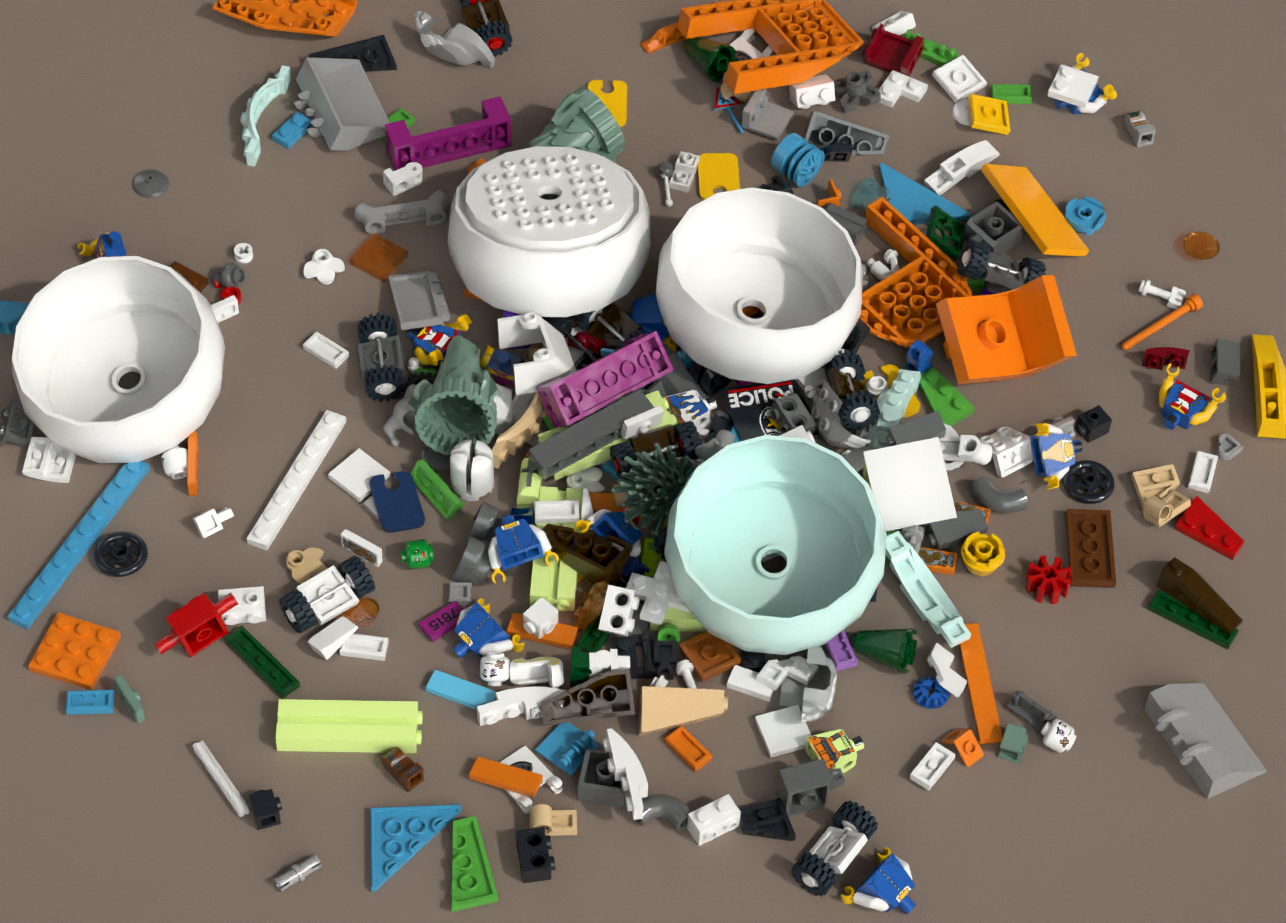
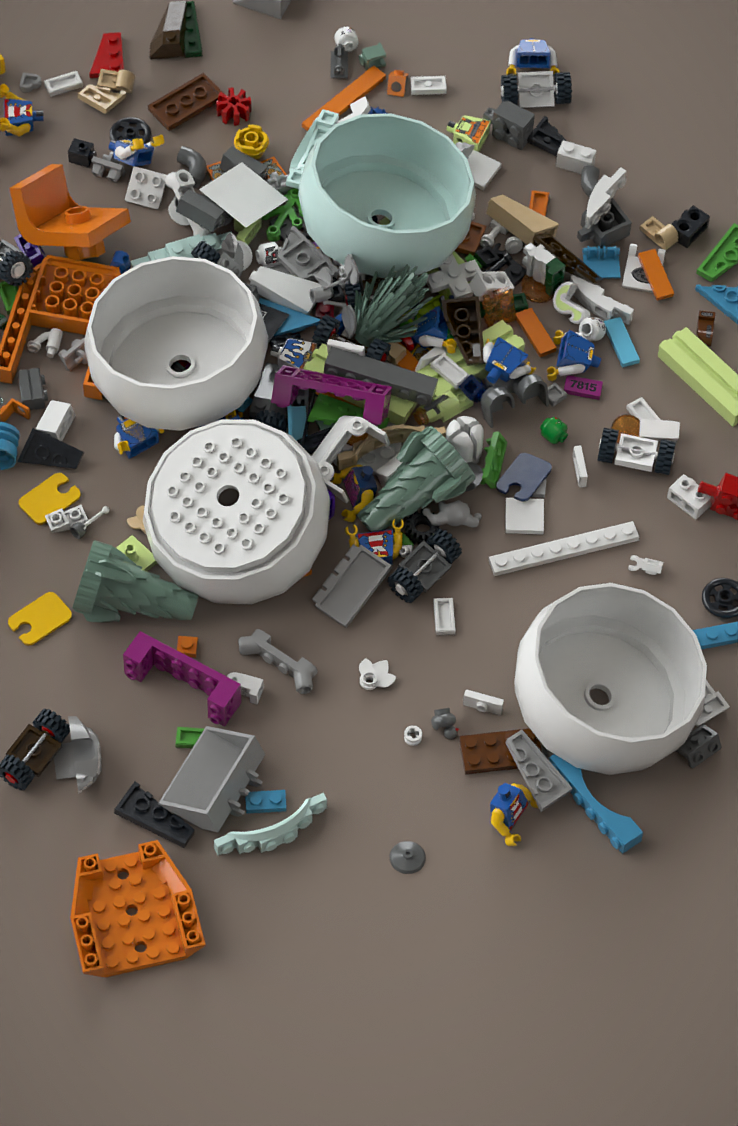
camera: 130 degrees left, 5 degrees up
(230, 291) = (459, 710): red tile -> none
(262, 662) = (713, 455): dark green tile -> none
(308, 565) = (619, 489): tan plate -> none
(379, 257) = (332, 648): clear orange plate -> none
(540, 618) = (535, 328): white brick -> none
(944, 397) = (138, 239): bright green wing -> none

